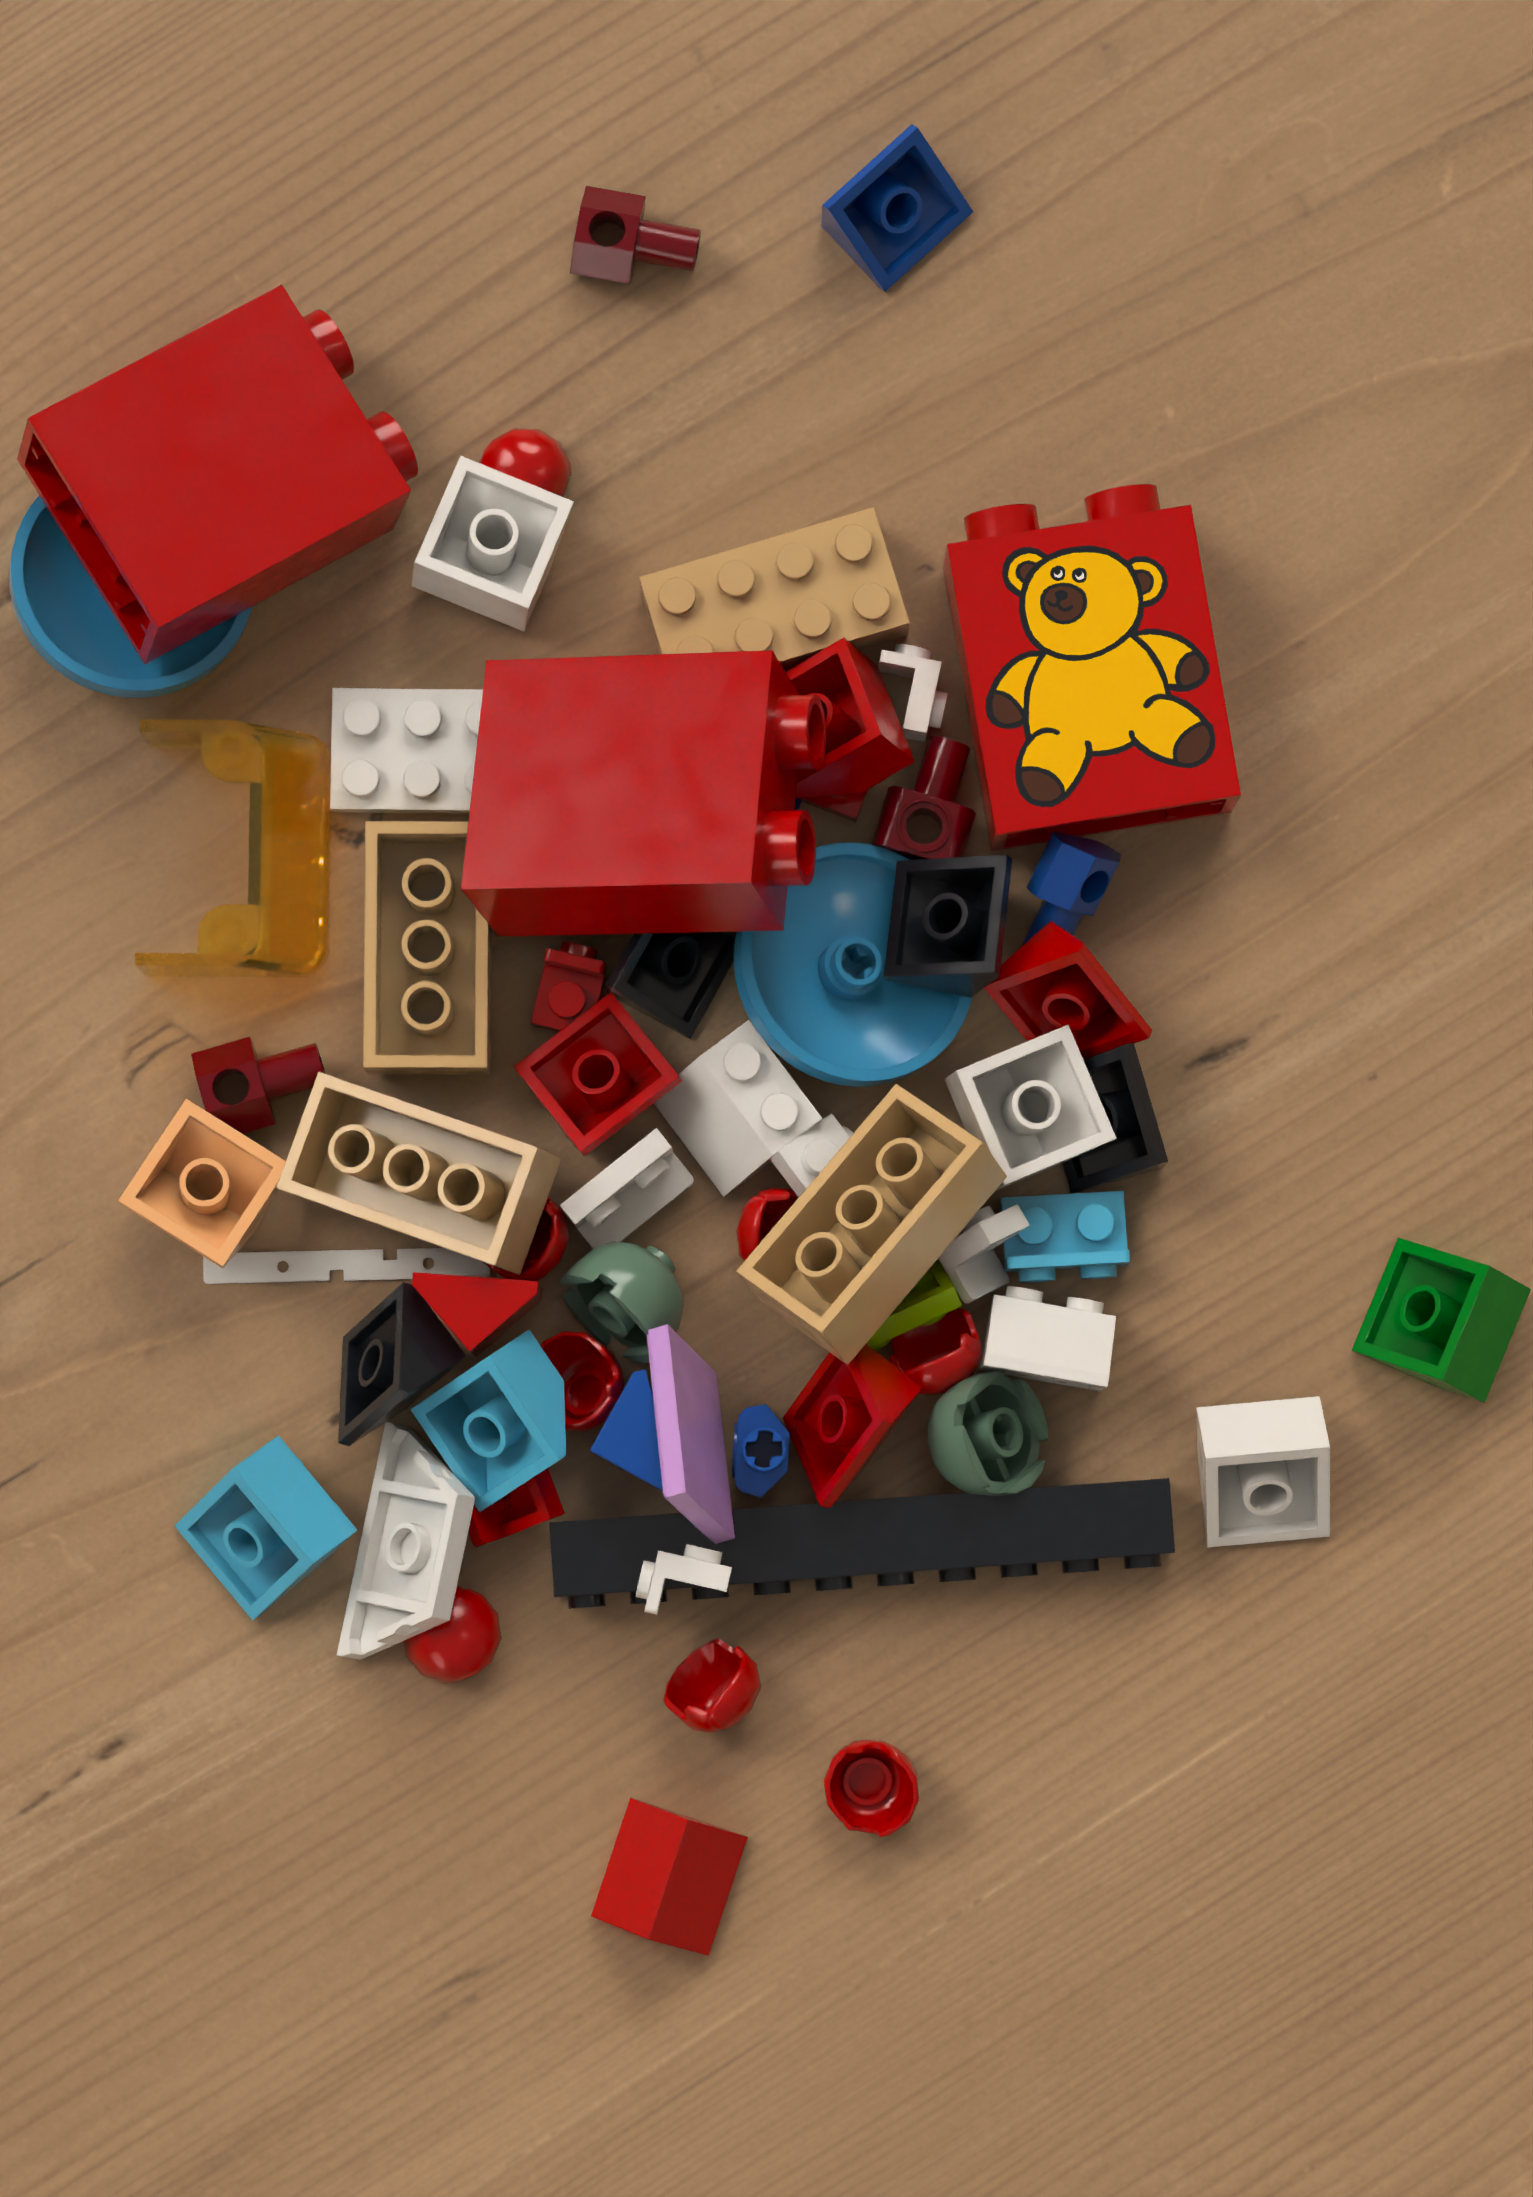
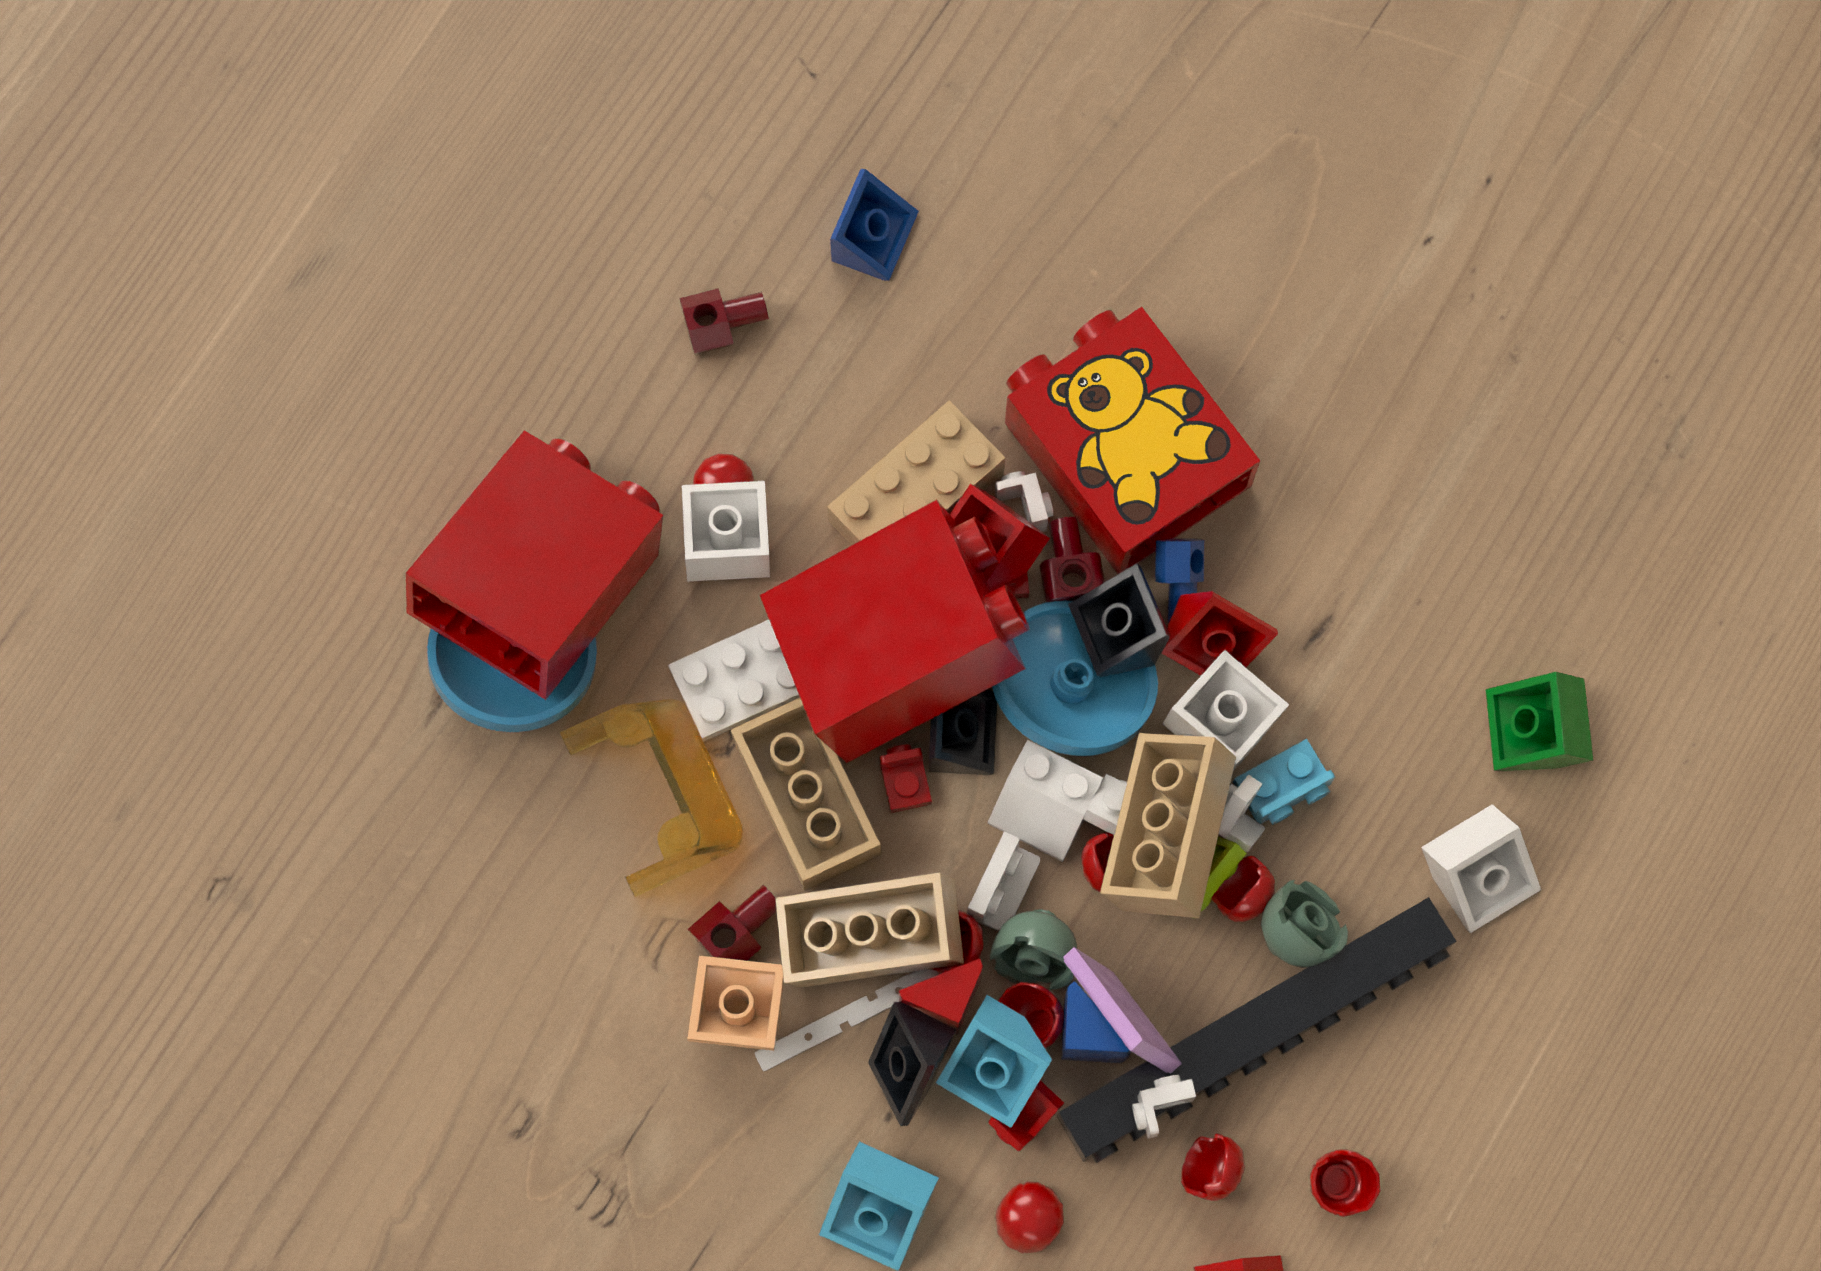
camera: 25 degrees left, 10 degrees down
(406, 1548) = (976, 1174): white wing -> none
(597, 1074) = (949, 820): red slope -> none
(759, 1451) = (1166, 1004): blue piece -> none
(846, 1418) = (1210, 956): red slope -> none
(1048, 1340) = (1311, 850): white slope -> none
(1132, 1118) = (1304, 700): black slope -> none

